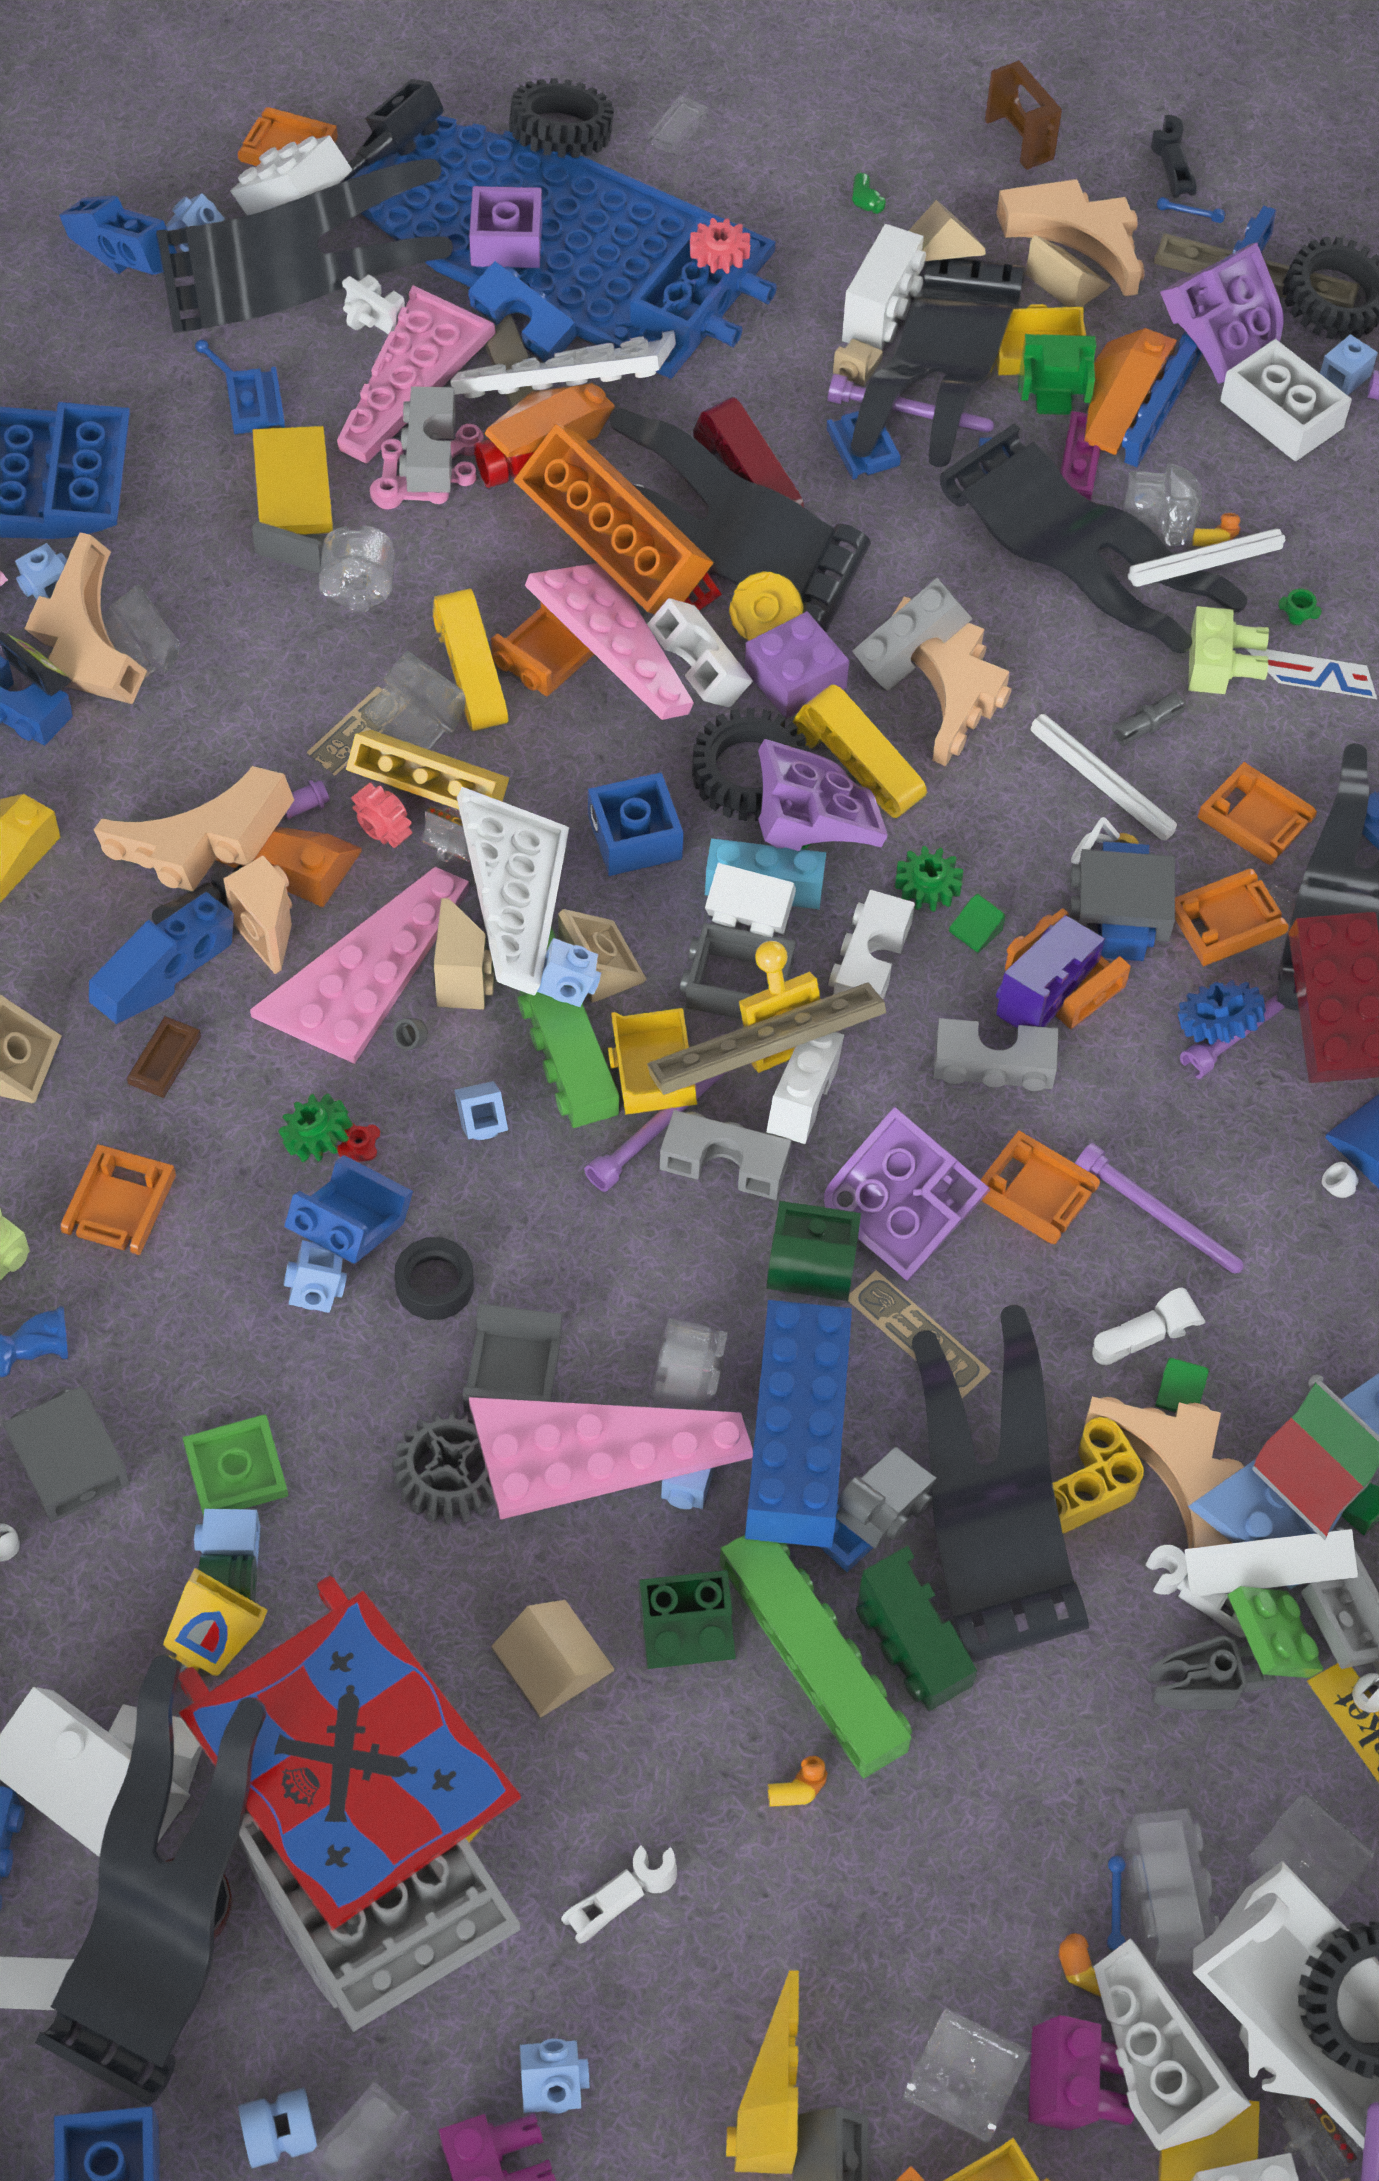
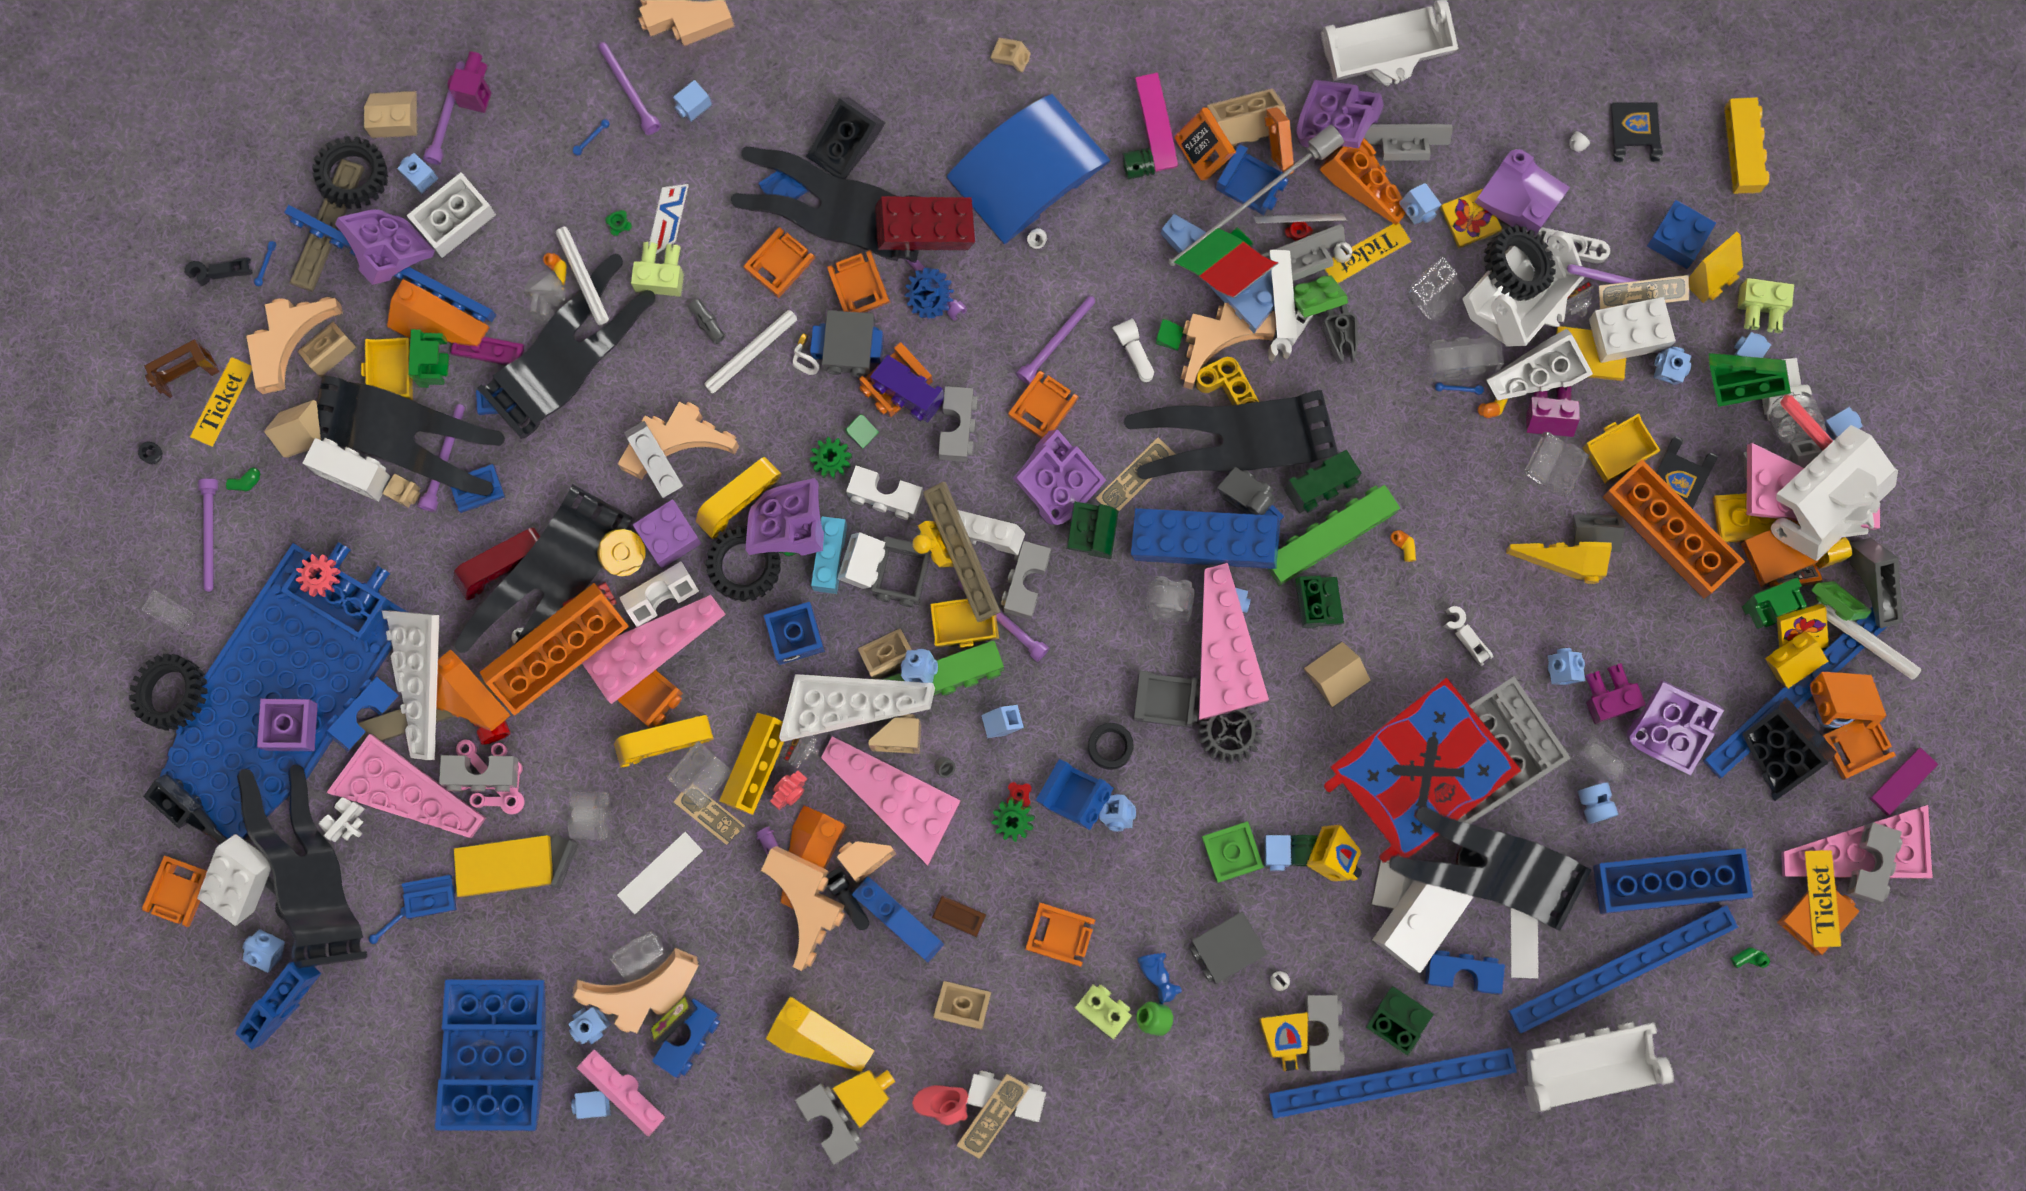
camera: 85 degrees left, 20 degrees up
(270, 671) = (659, 873): none -> white sticker
(852, 157) = (208, 488): none -> medium lavender piece
(906, 92) = (149, 446): none -> black bush
(975, 169) = (221, 401): none -> yellow sticker

